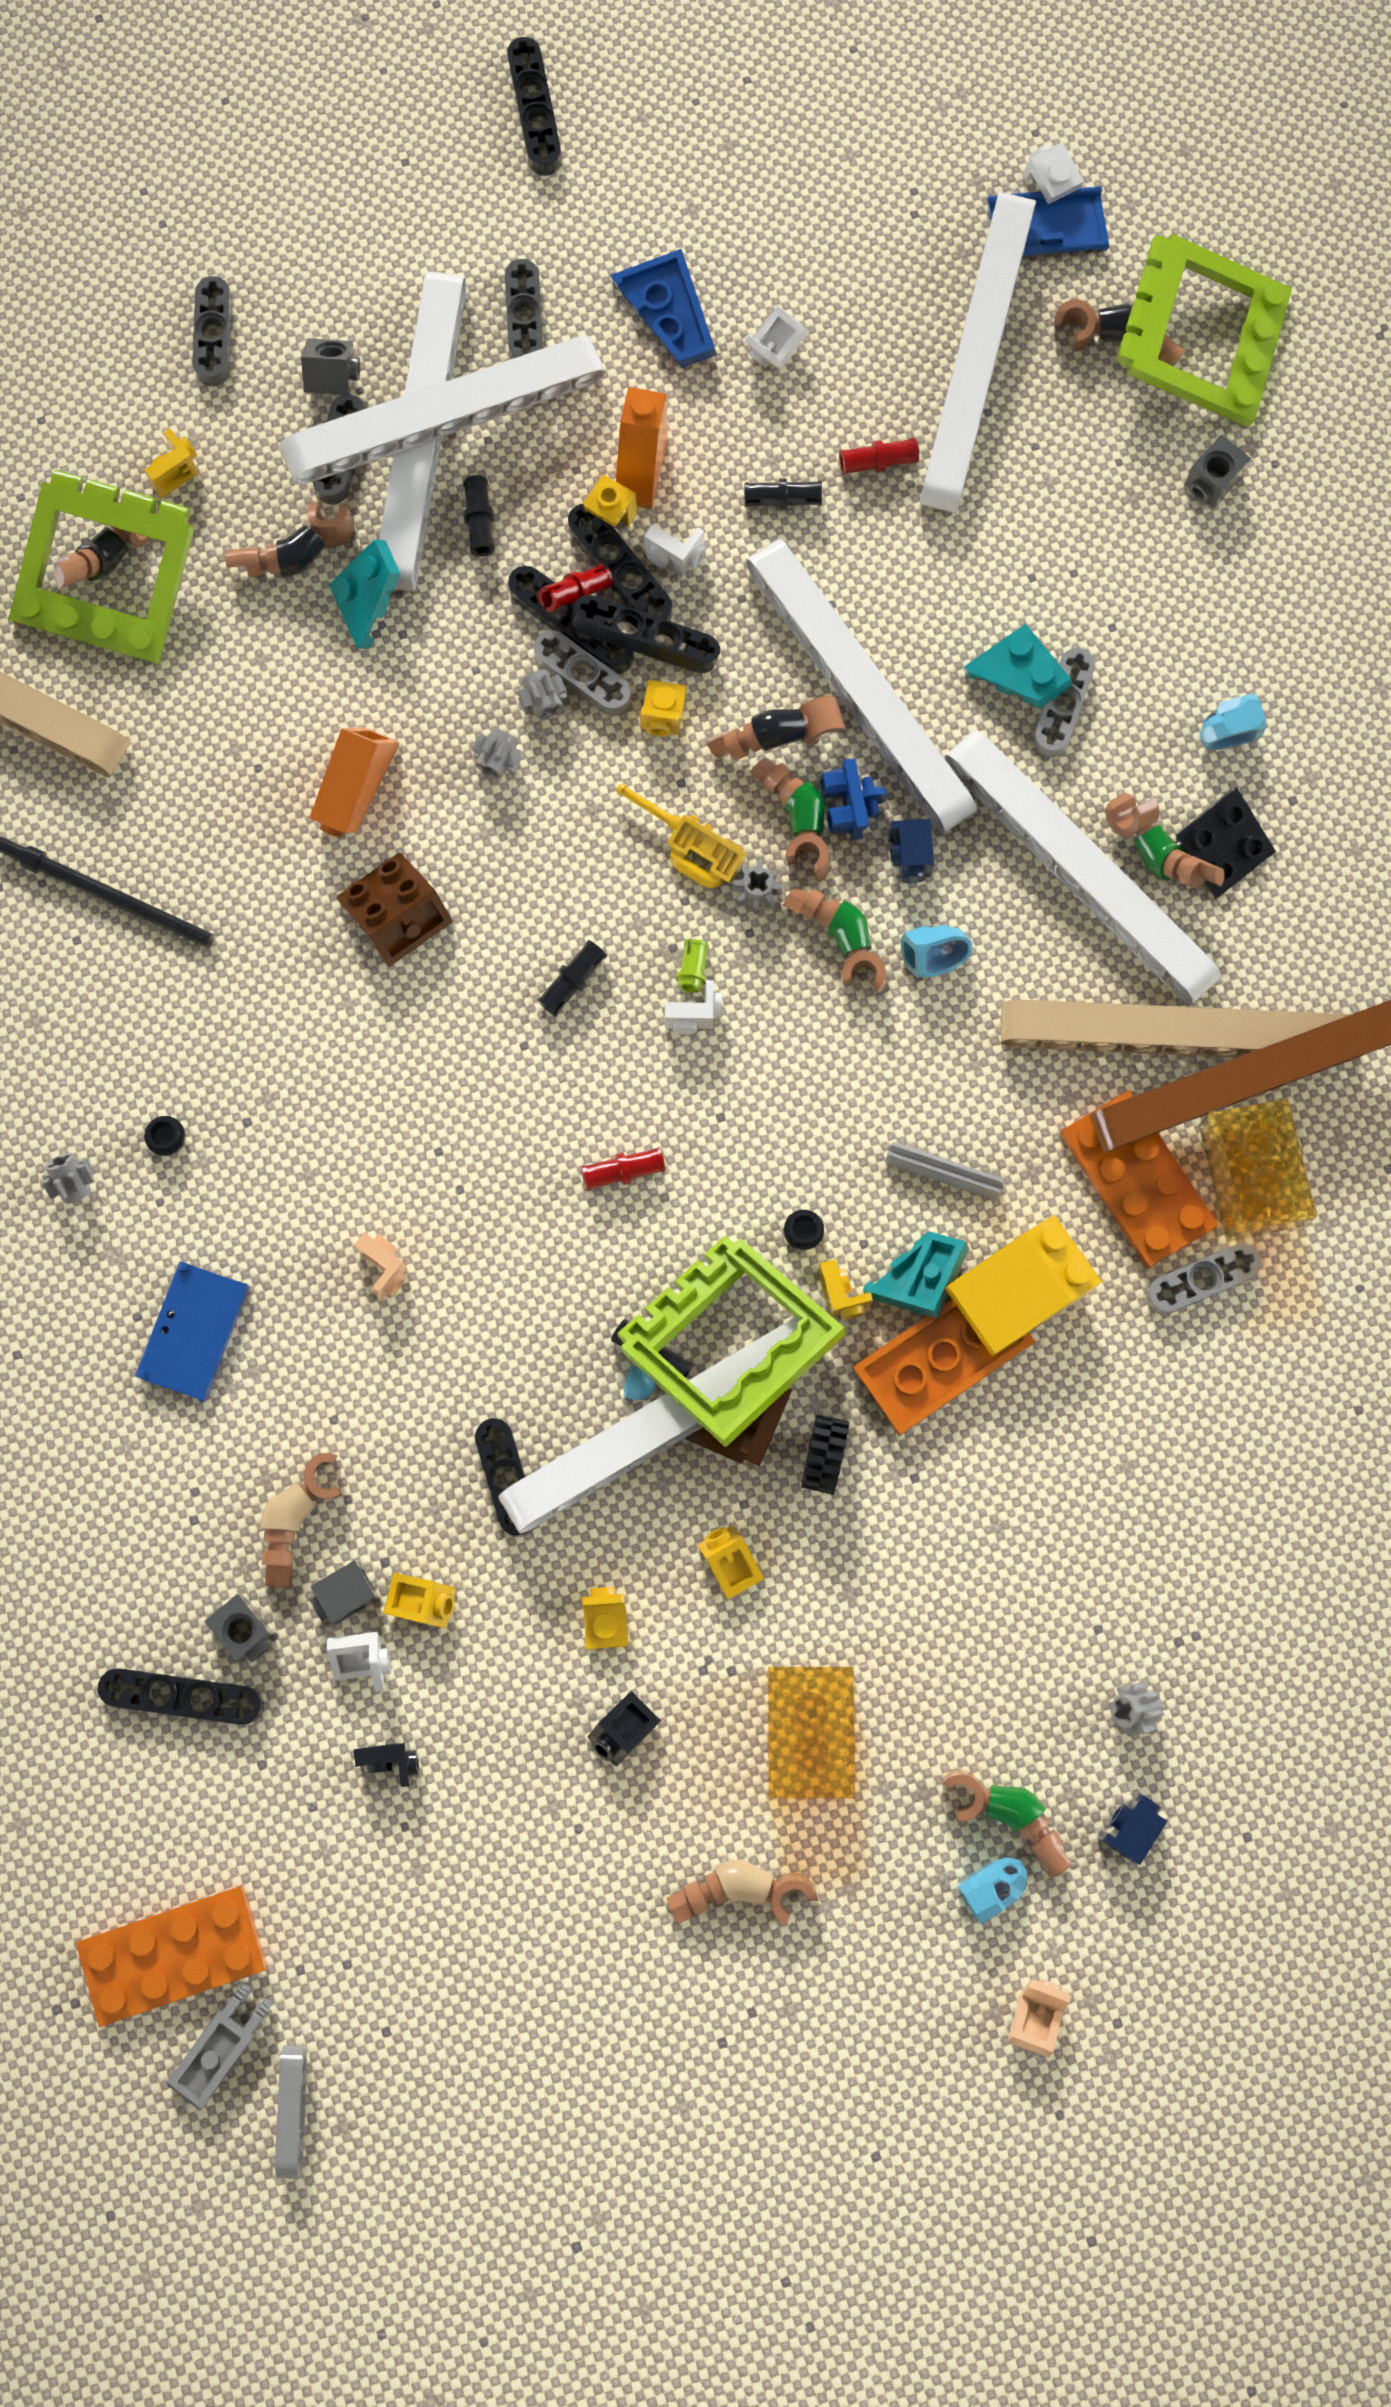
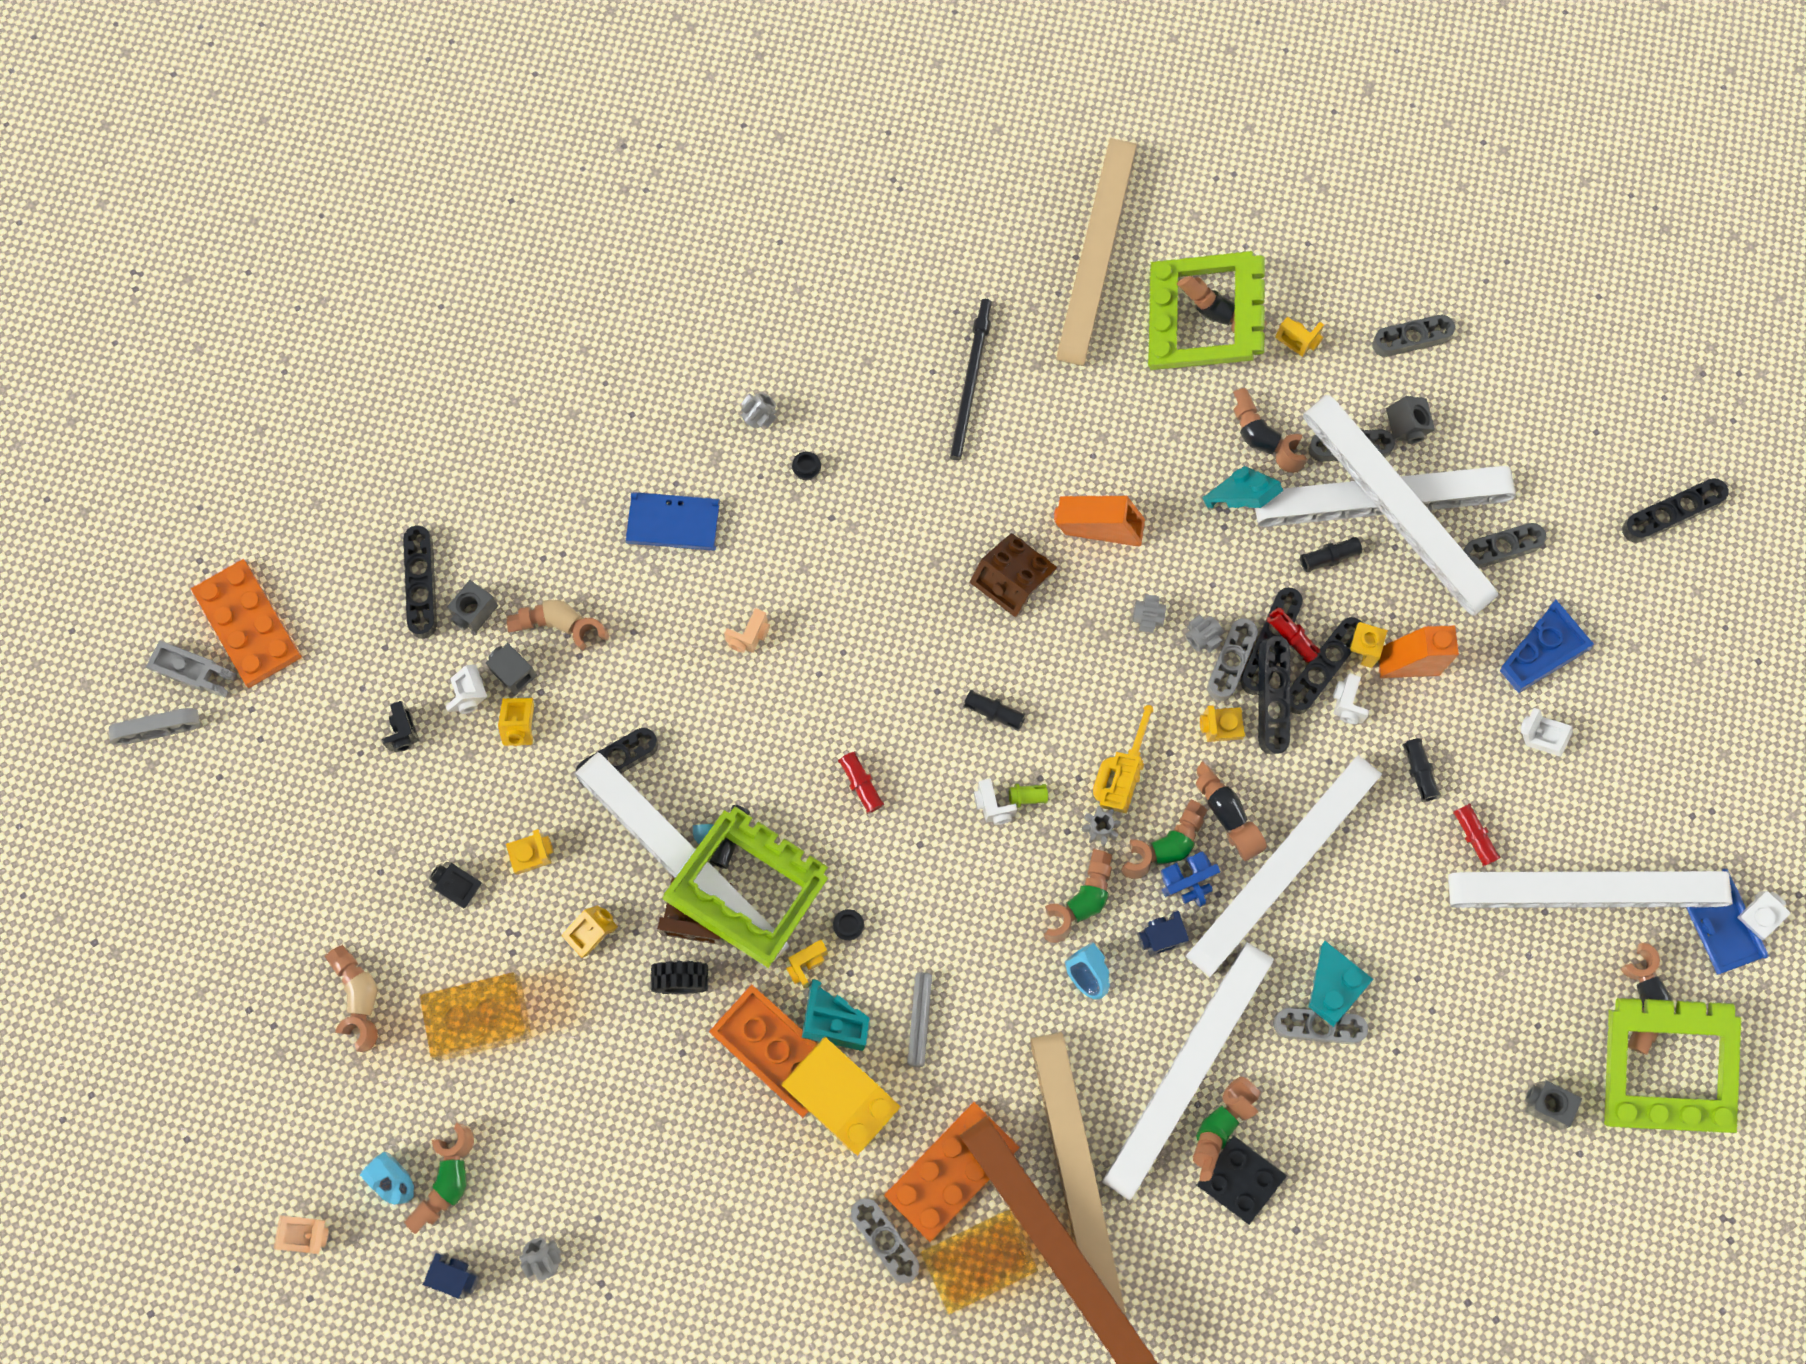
camera: 75 degrees right, 5 degrees down
(1234, 723) = (1342, 1164): medium azure rock -> none

